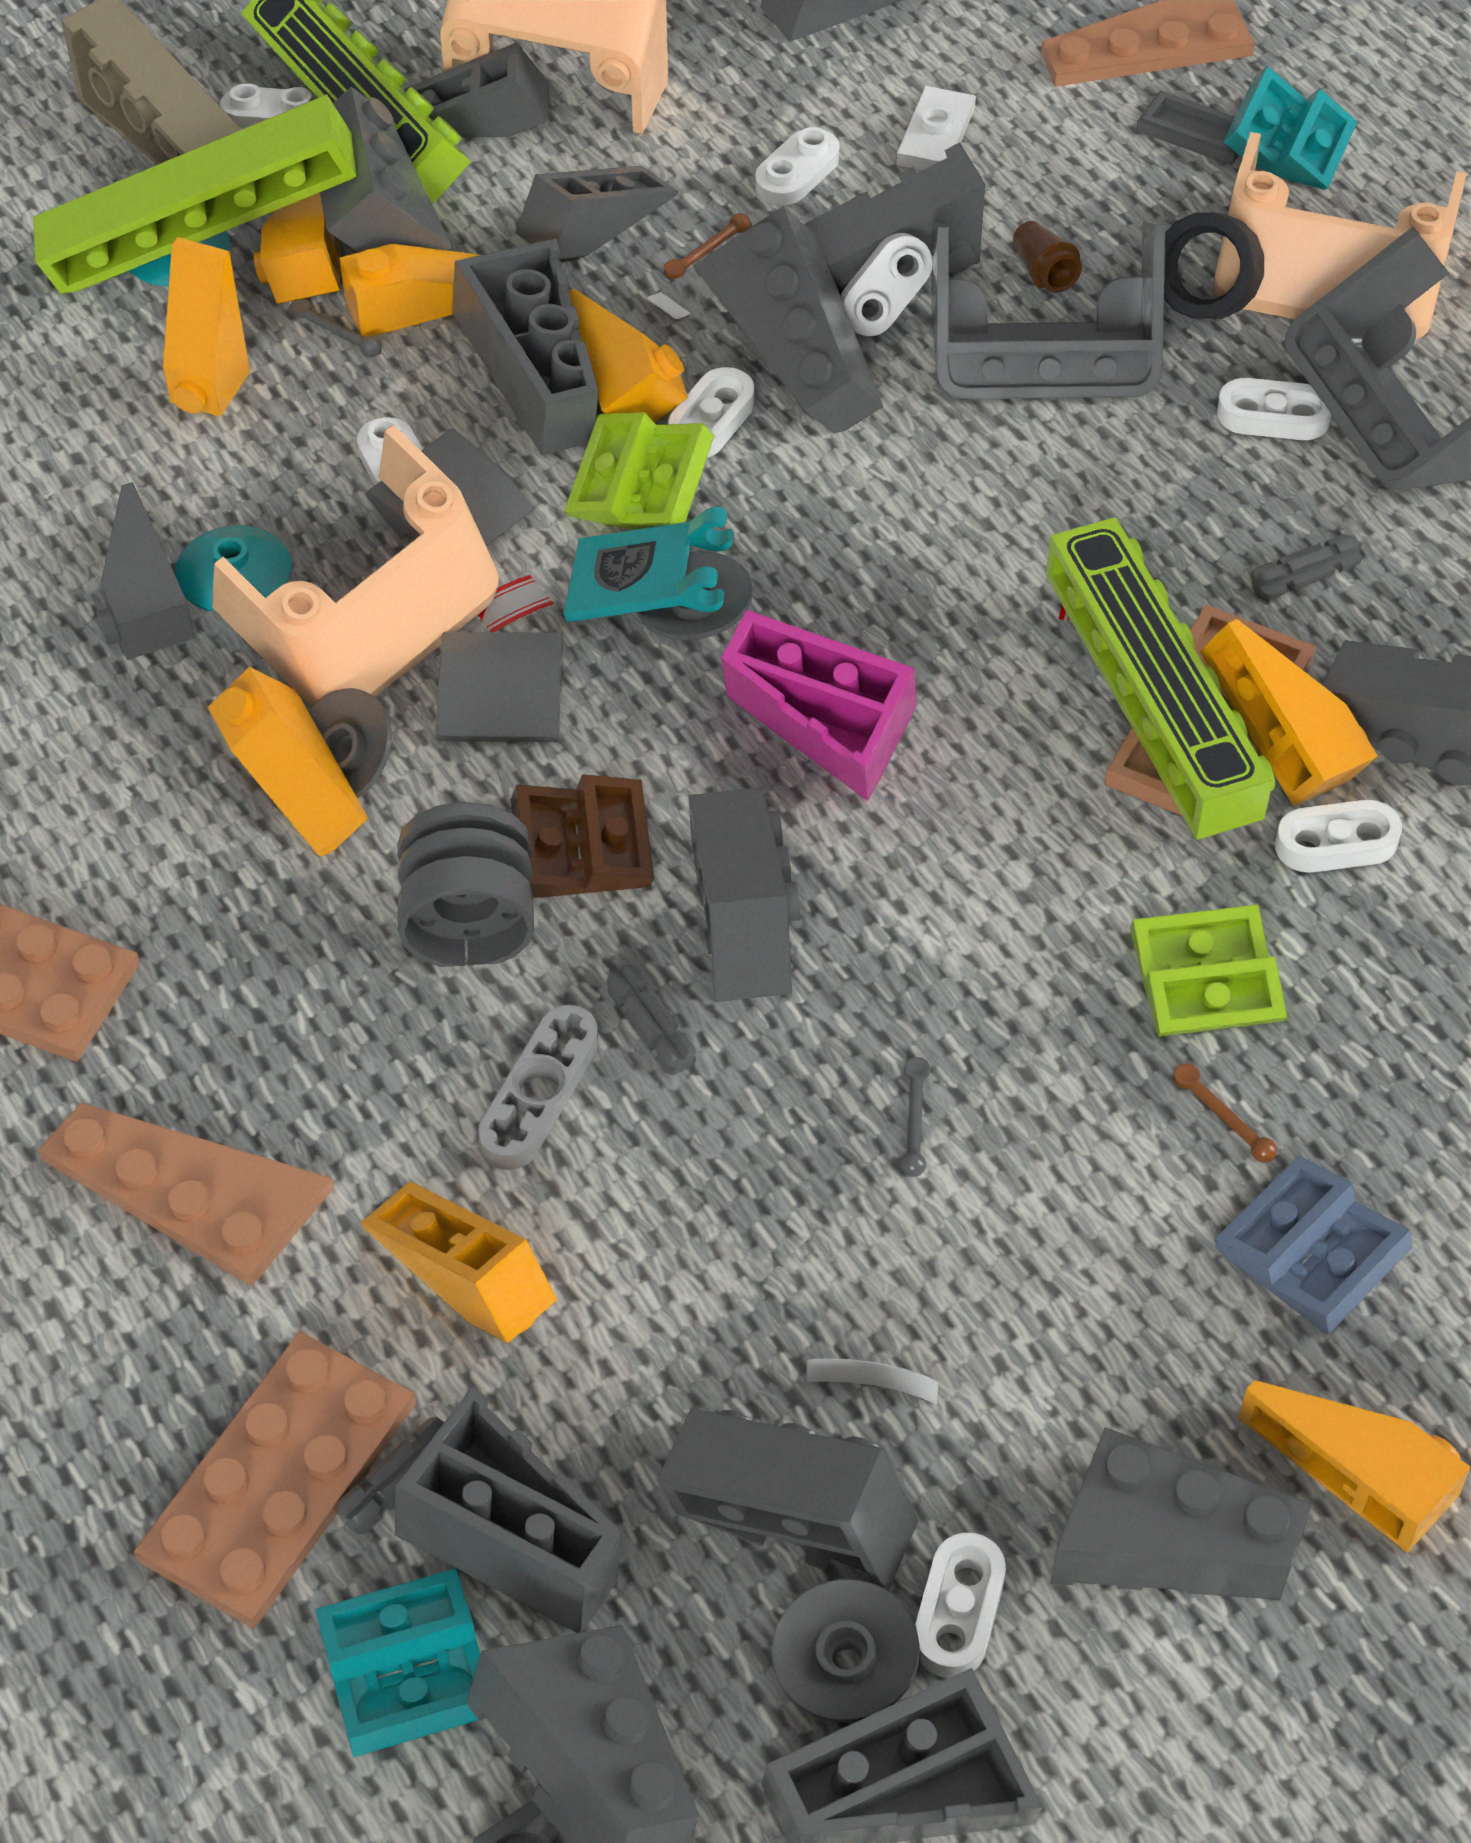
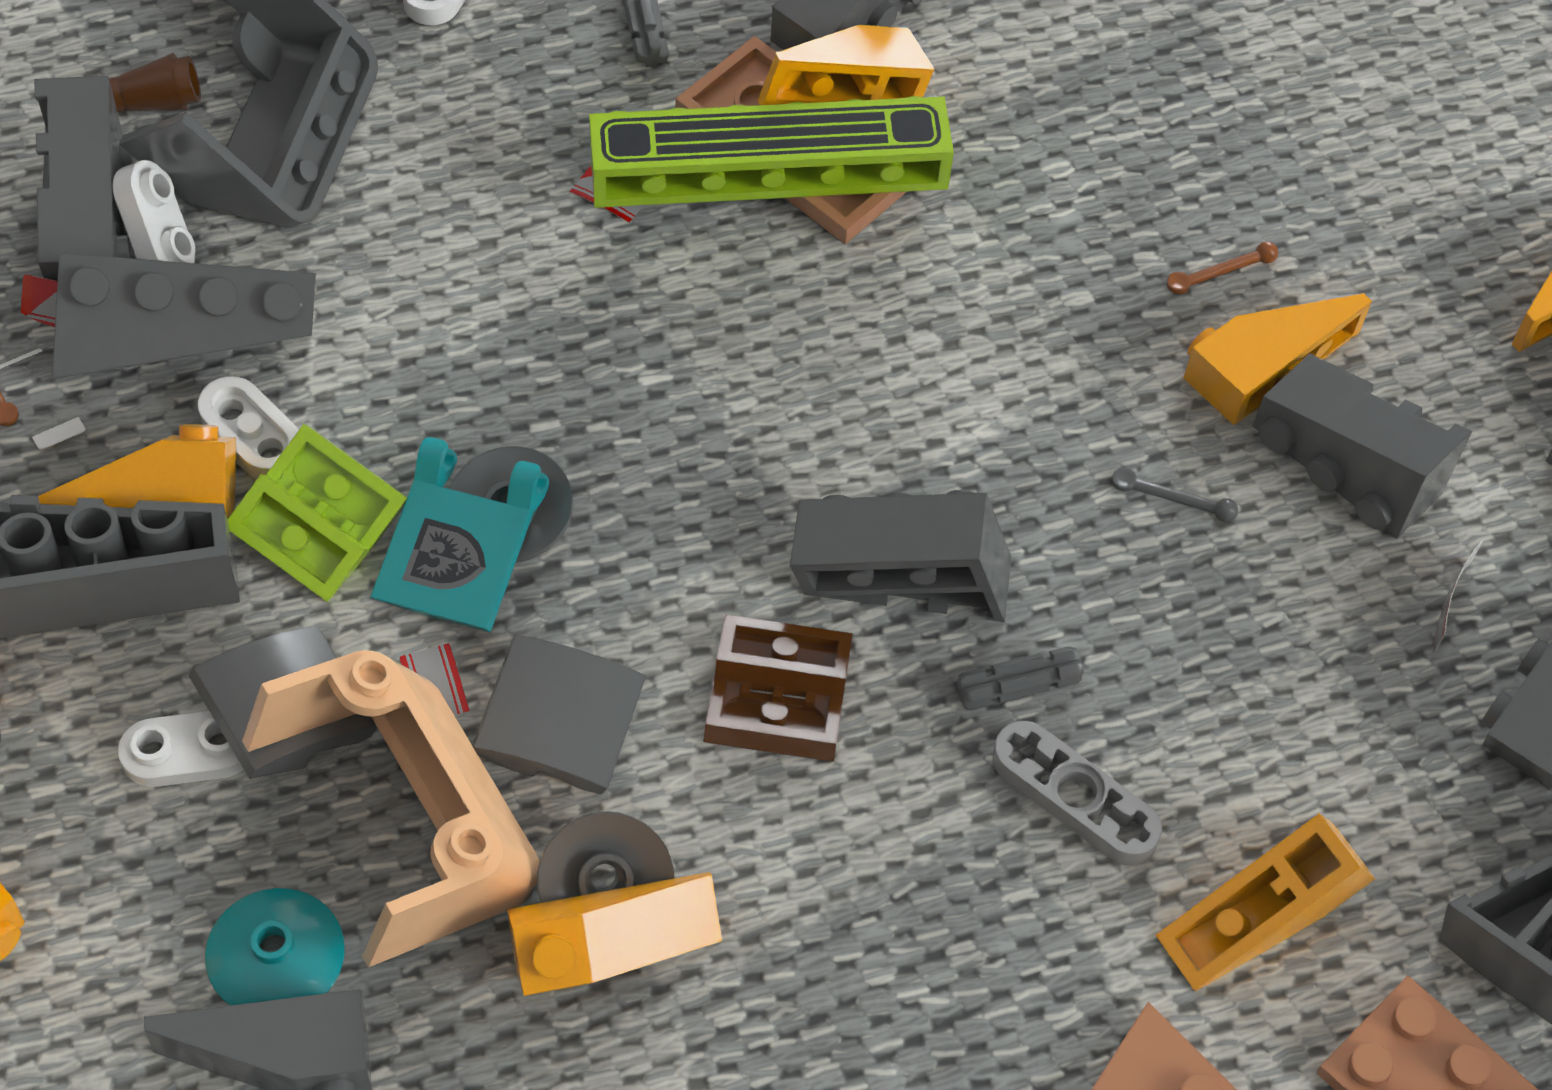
camera: 80 degrees left, 5 degrees up
(362, 1506) = (1485, 1009): dark grey axle -> none
(463, 880) = (850, 788): dark grey wheel -> none
(821, 696) = (696, 425): dark pink wedge -> none
(1018, 1251) = (1359, 444): none -> dark grey wedge
(1109, 1152) = (1258, 349): none -> light orange slope
(1207, 970) = (1103, 232): lime slope -> none
(1292, 1222) = (1370, 243): sand blue slope -> none
(1335, 832) = (964, 95): white plate -> none

